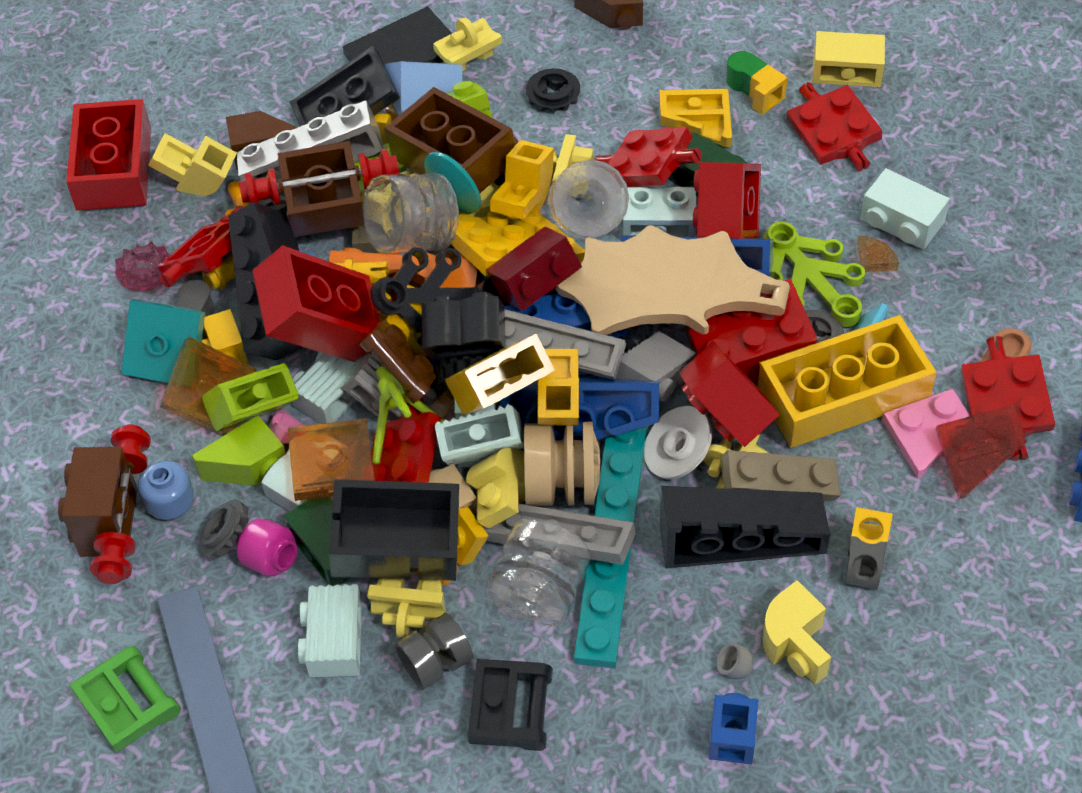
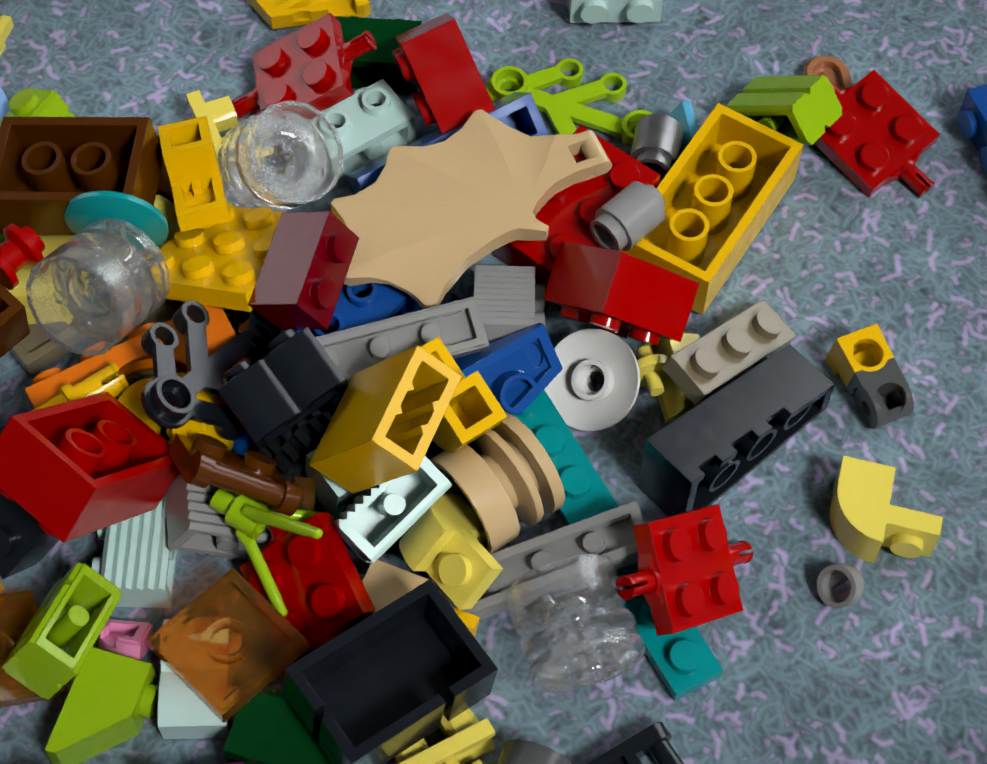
camera: 40 degrees left, 5 degrees up
(557, 80) = (111, 37): black gear -> none
(633, 583) = (686, 569): none -> red plate
(730, 743) = (910, 642): blue brick -> none
(768, 349) = (628, 217): none -> light grey brick
(839, 319) = (657, 142): none -> flat silver brick
(876, 255) = (618, 53): clear orange tile -> none
(915, 427) = (818, 213): bright pink wing -> none
(952, 345) = (790, 105): none -> lime brick
(979, 445) = (891, 202): clear red wing -> none

